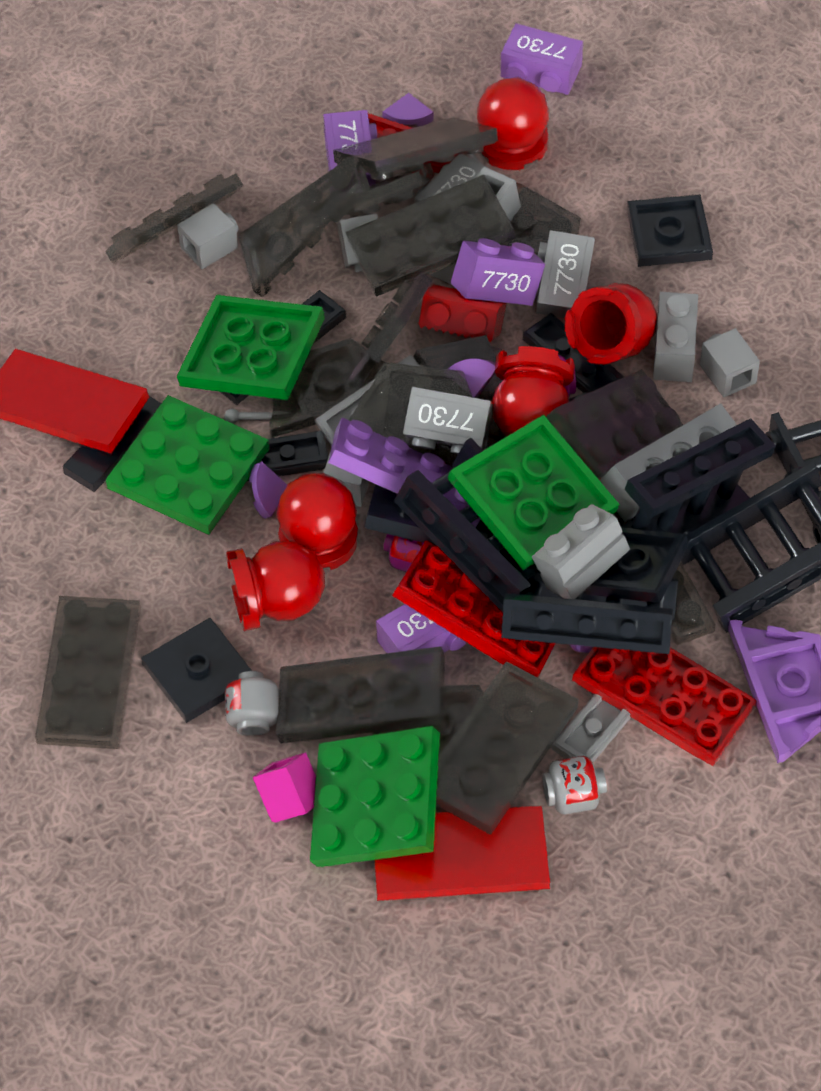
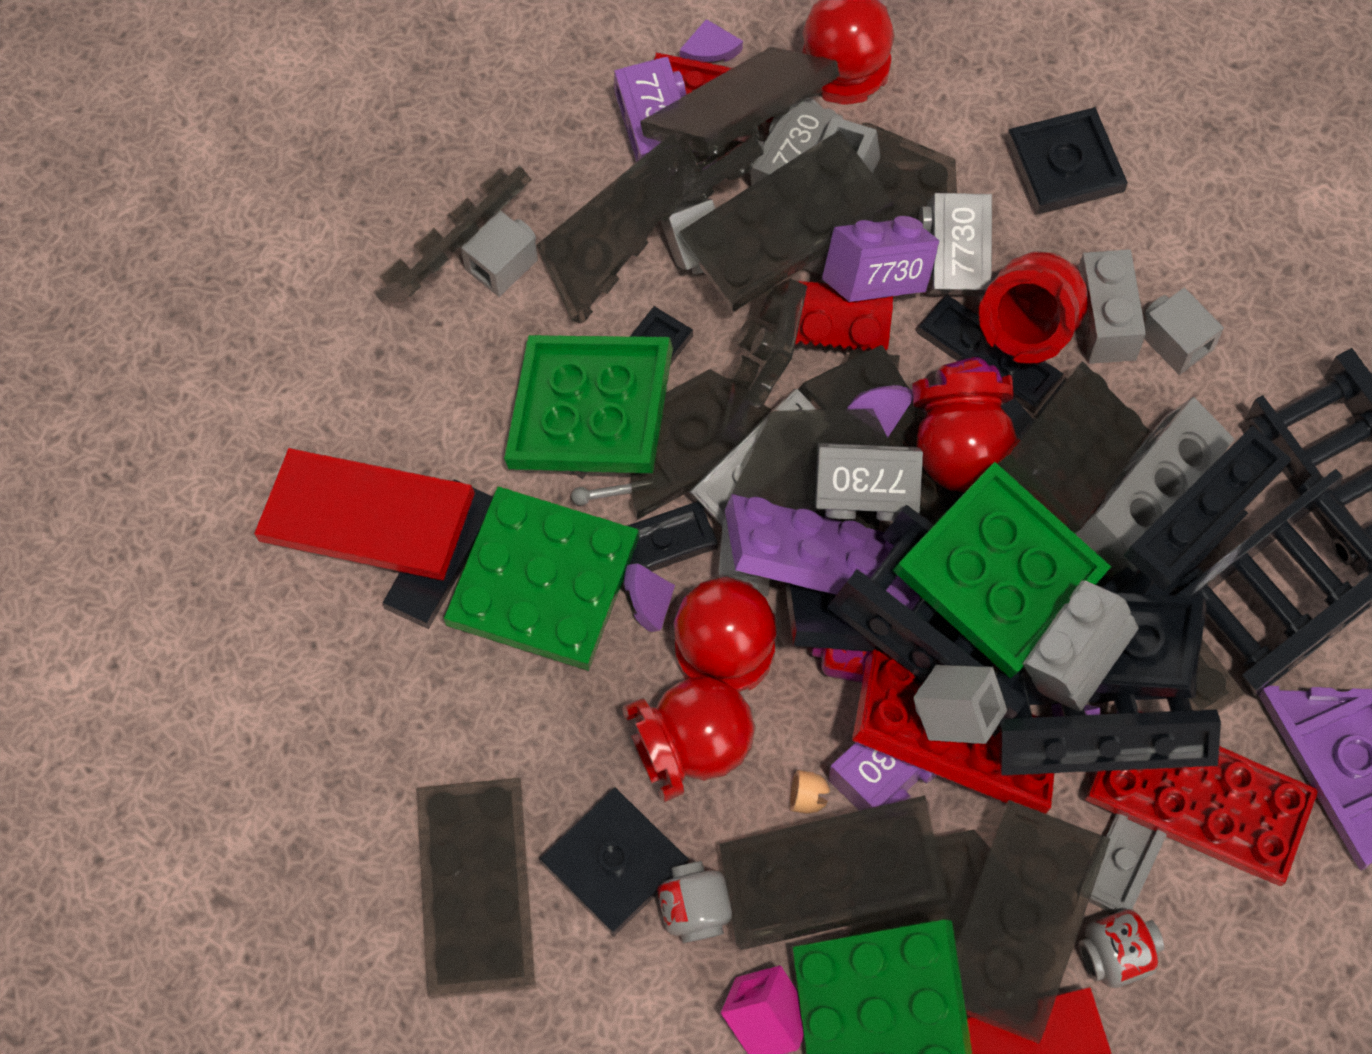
camera: 10 degrees left, 10 degrees up
(355, 642) = (805, 792): none -> light nougat hinge
(477, 576) = (960, 704): none -> light grey brick

